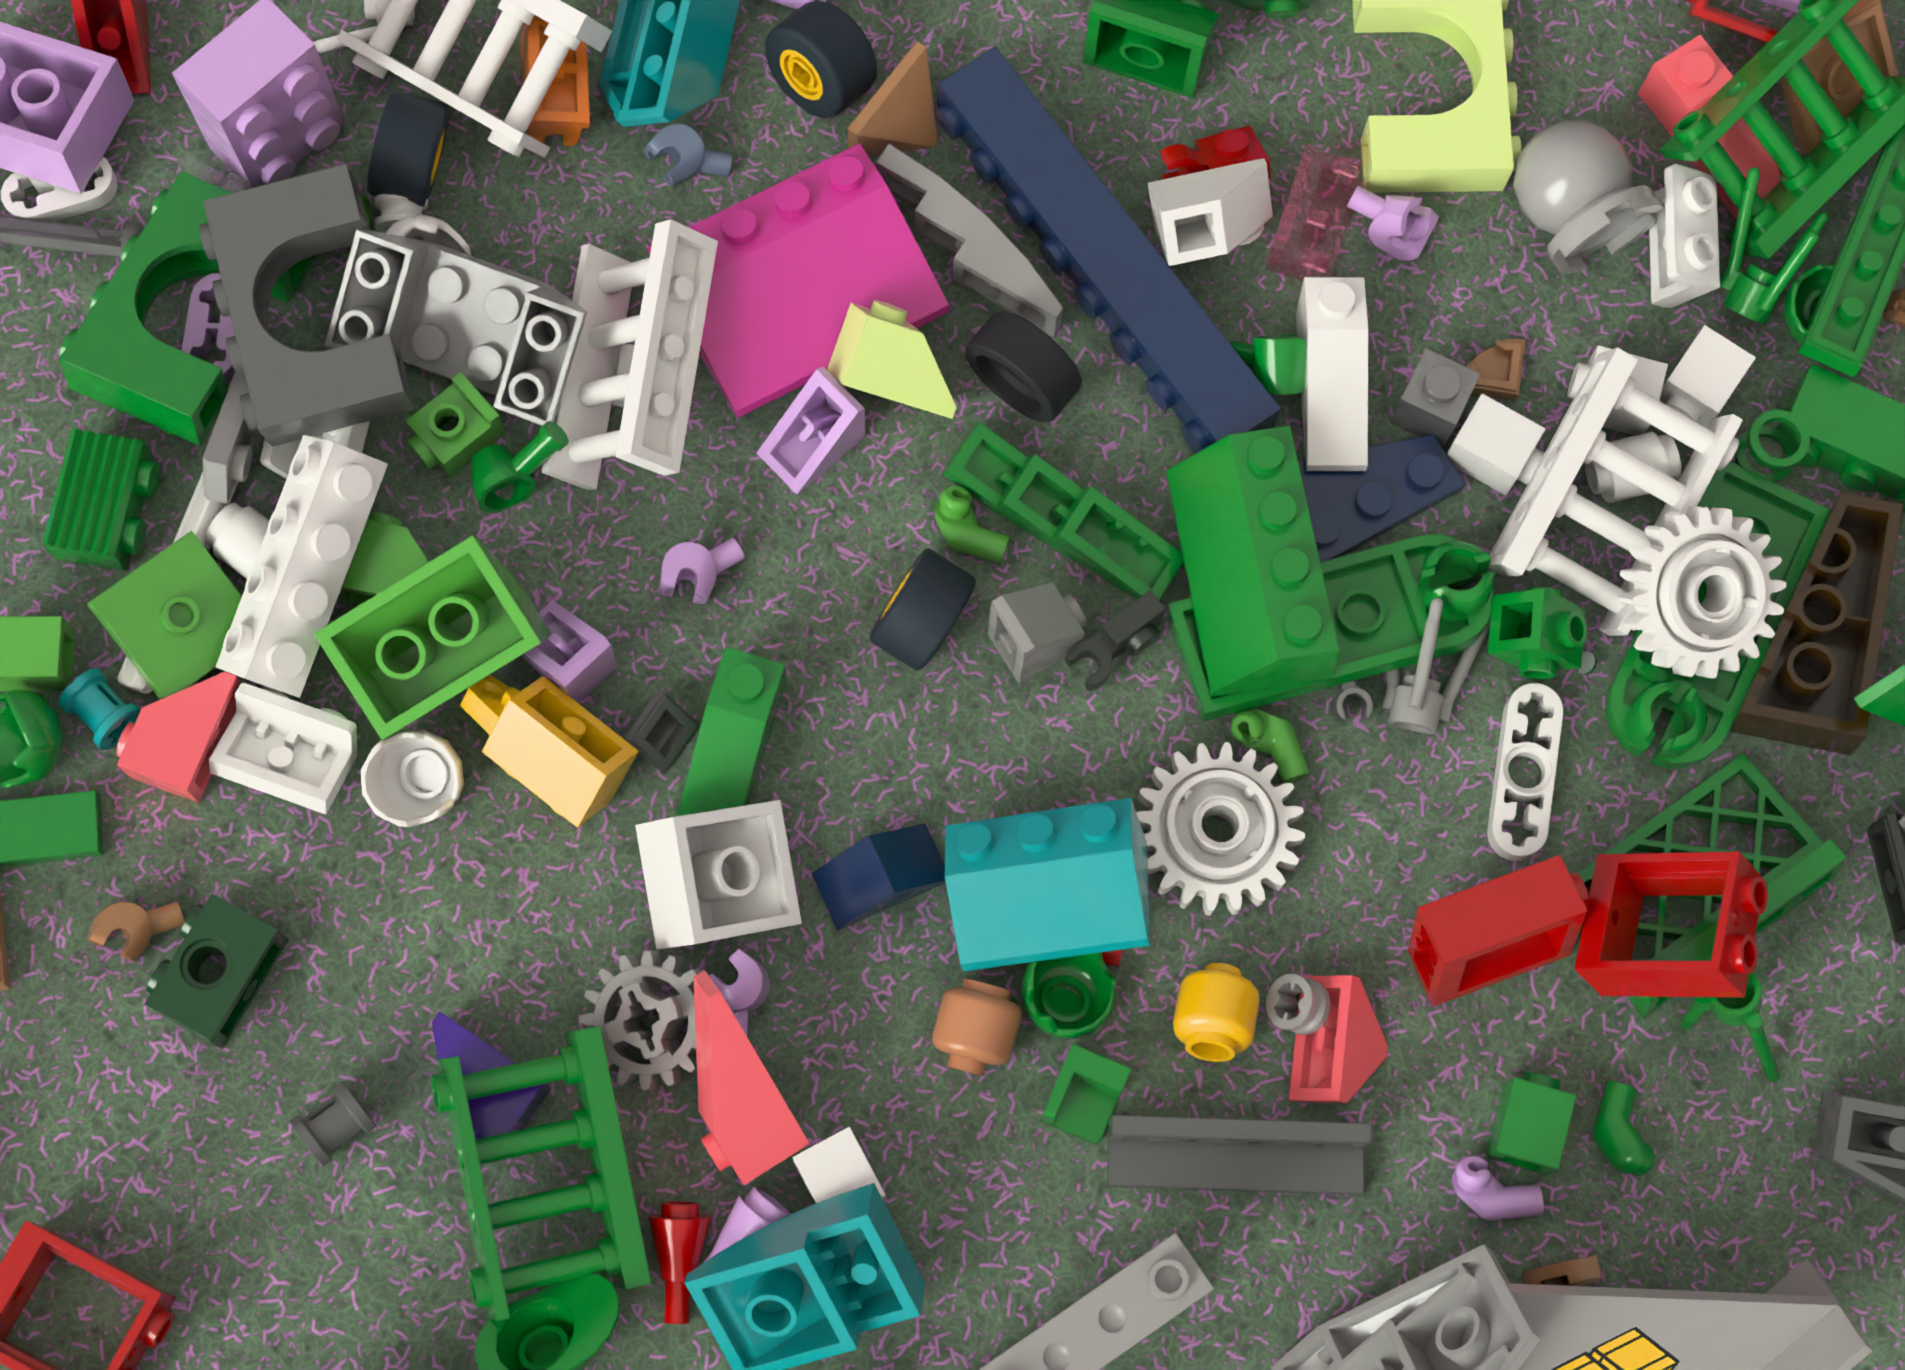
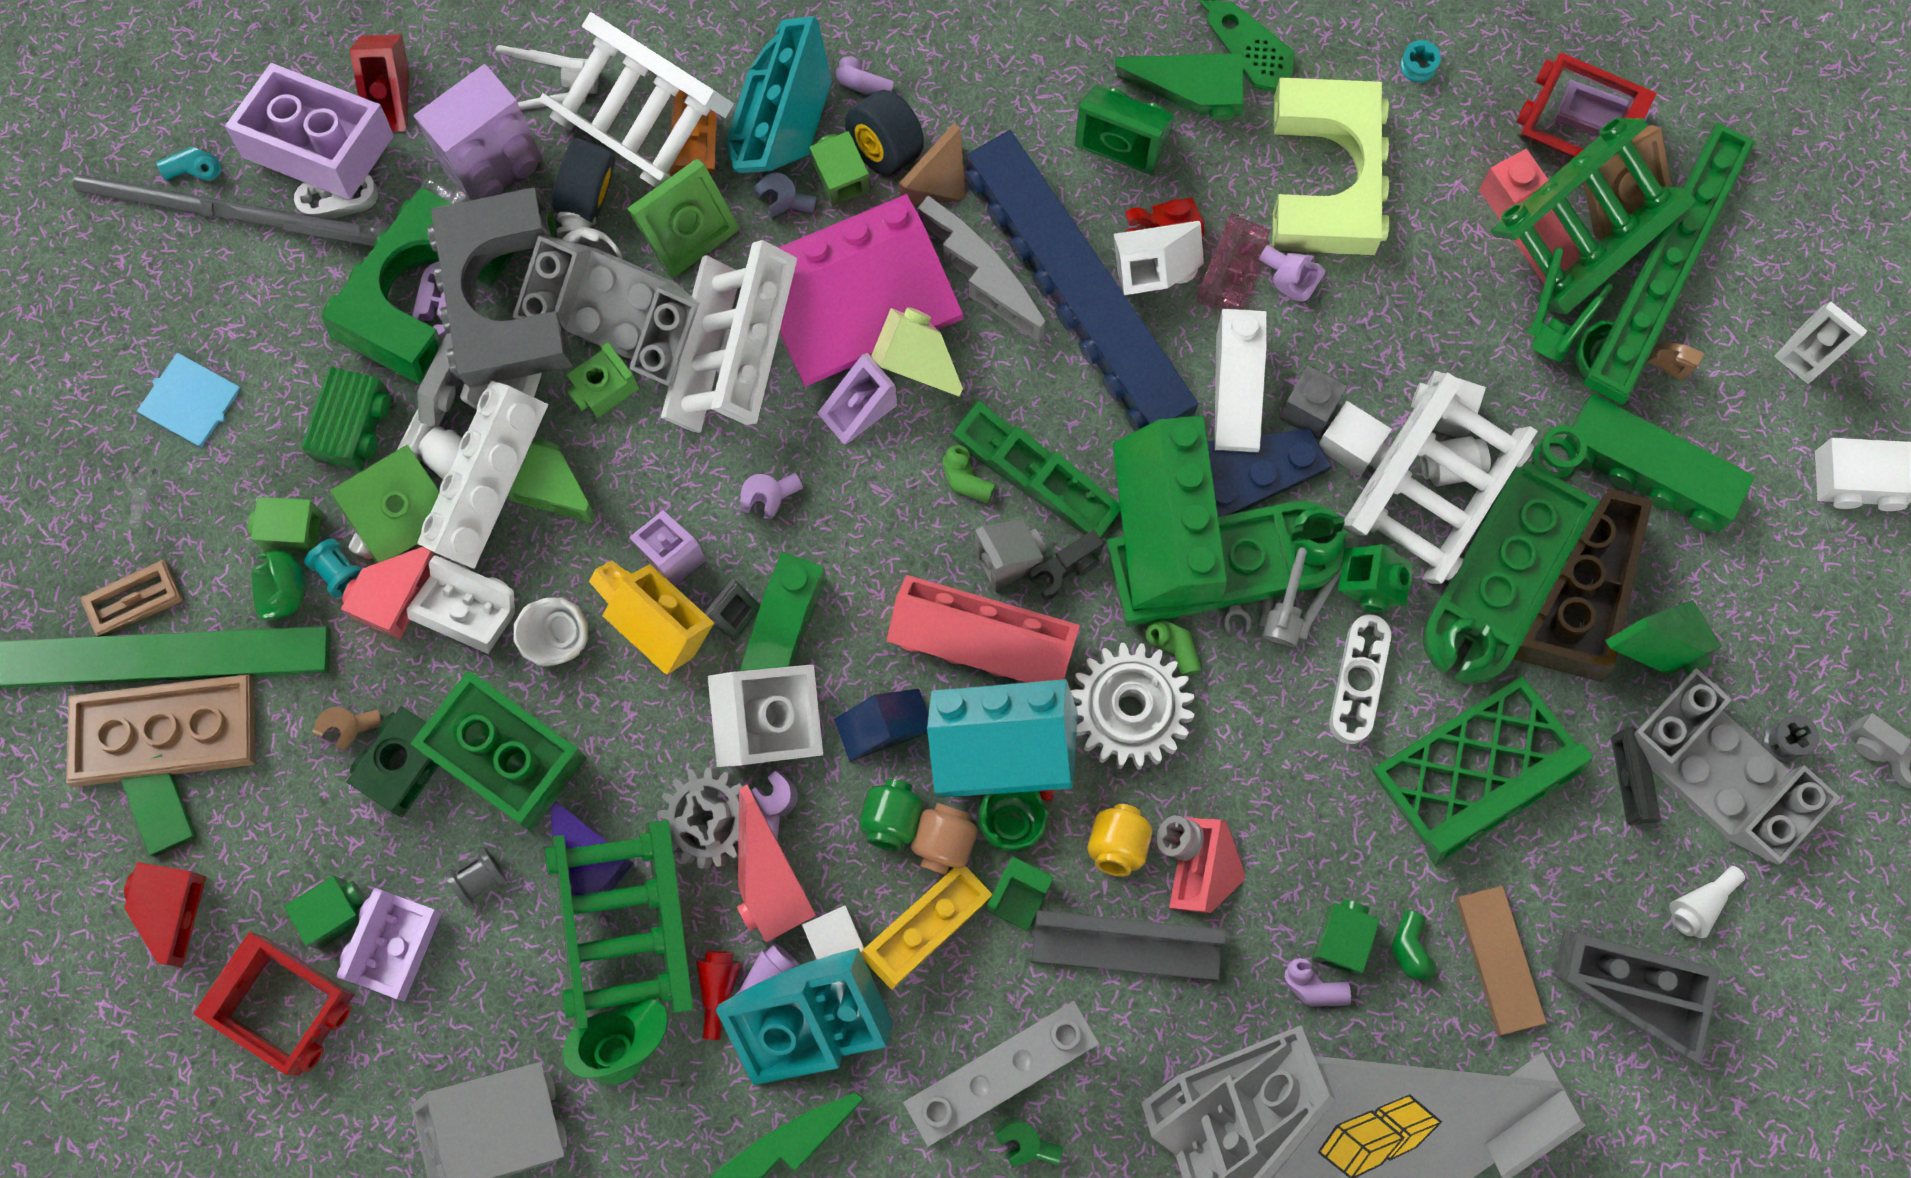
camera: 10 degrees right, 0 degrees up
(130, 1185) = (326, 911): none -> green brick
(220, 1224) = (388, 944): none -> lavender bracket
(354, 946) = (499, 750): none -> green slope
(432, 635) = (571, 529): bright green slope -> none
(498, 467) = (631, 412): green bar -> none
(553, 194) = (684, 218): none -> bright green plate
(762, 111) = (839, 168): none -> bright green brick
(901, 999) = (891, 815): none -> green head
(923, 609) = (927, 533): black wheel -> none
(961, 1147) = (925, 926): none -> yellow plate
(1007, 741) = (981, 632): none -> coral brick
(1023, 366) = (1013, 361): black tyre -> none
(1276, 362) = (1198, 369): green piece -> none
(1497, 929) = (1330, 793): red window -> none
(1499, 369) = (1362, 384): medium nougat tile -> none
(1568, 1273) = (1362, 1050): medium nougat tile -> none
(1580, 189) = (1429, 256): light grey tile -> none
(1588, 663) = (1412, 602): light grey piece -> none
(1615, 911) = (1418, 787): red window -> none
(1666, 588) = (1472, 552): white gear -> none
(1684, 238) = (1504, 295): white bracket -> none
(1705, 376) = (1513, 398): white brick -> none
(1737, 1013) = (1503, 858): green plant -> none
(1740, 1140) = (1500, 960): none -> medium nougat tile

